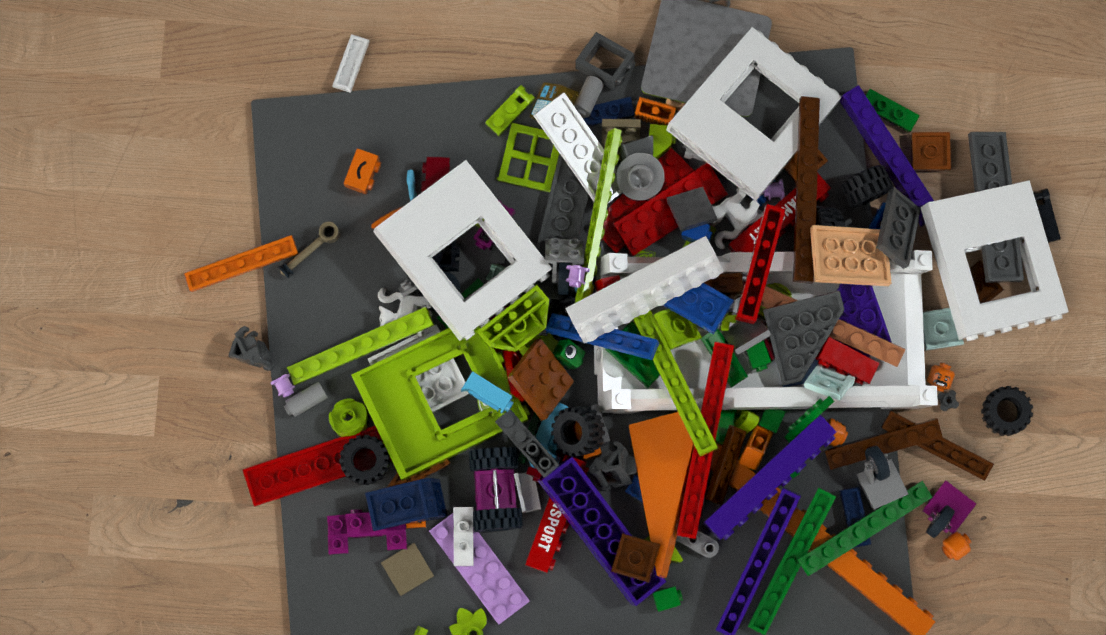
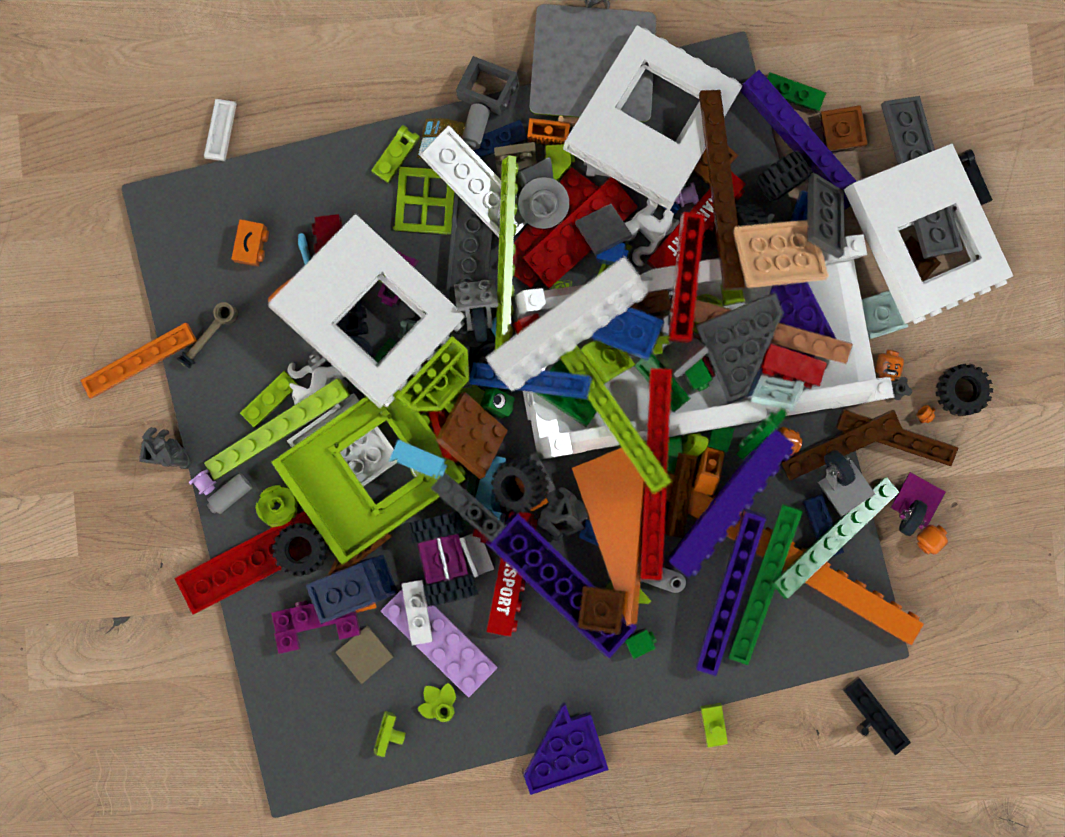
camera: 10 degrees left, 5 degrees up
(356, 318) = (268, 399): none -> lime plate
(576, 275) = (492, 320): lavender brick -> none
(802, 289) = (732, 297): none -> lime tile
(968, 428) = (926, 414): none -> orange plate

